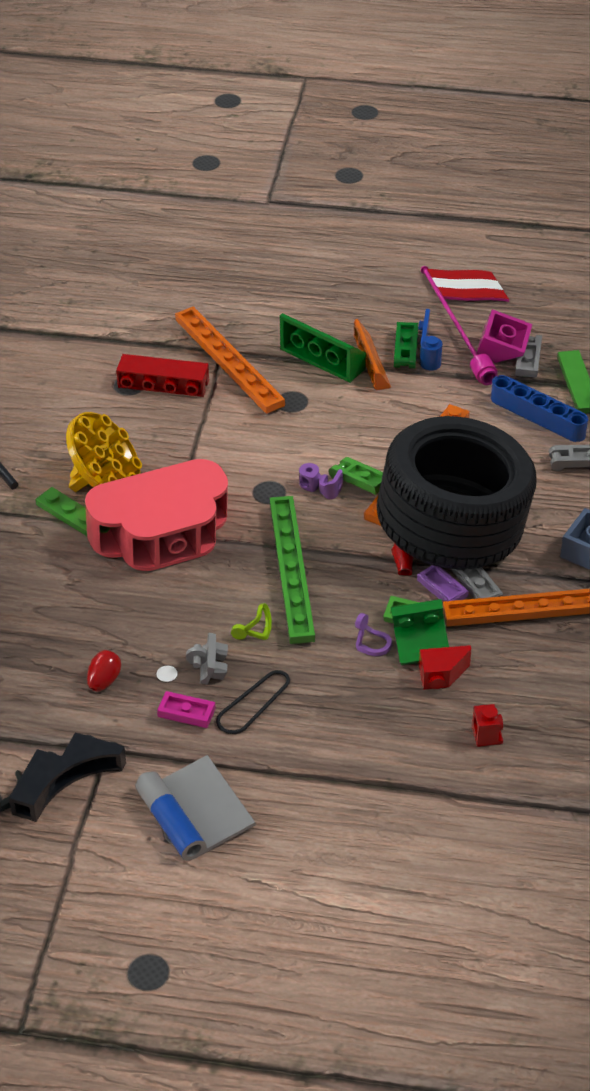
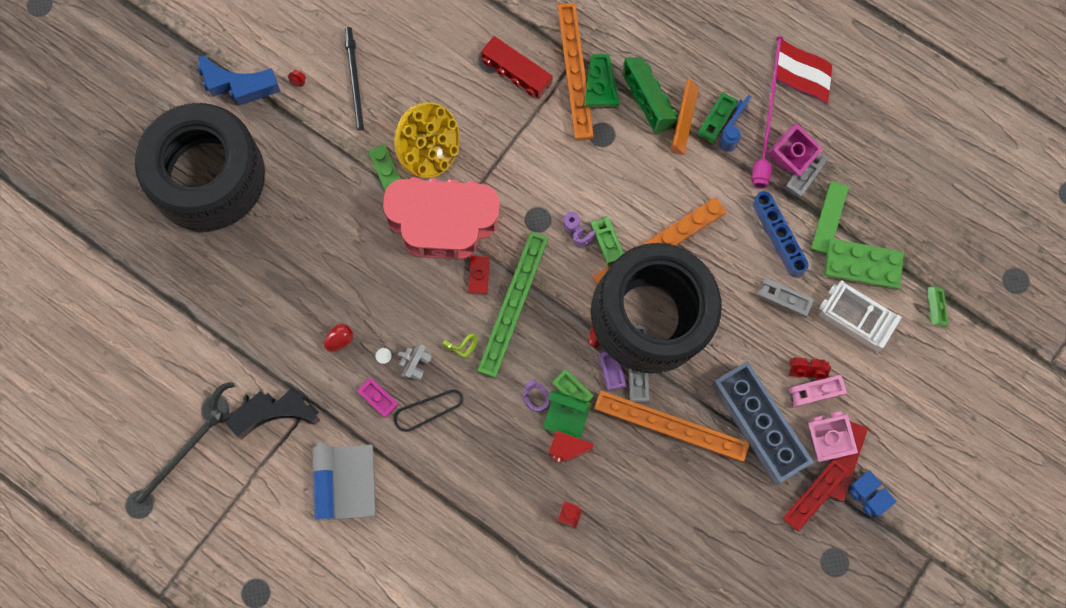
camera: 25 degrees right, 30 degrees up
(234, 559) = (479, 275): none -> red plate
(263, 357) = (601, 84): none -> green wing

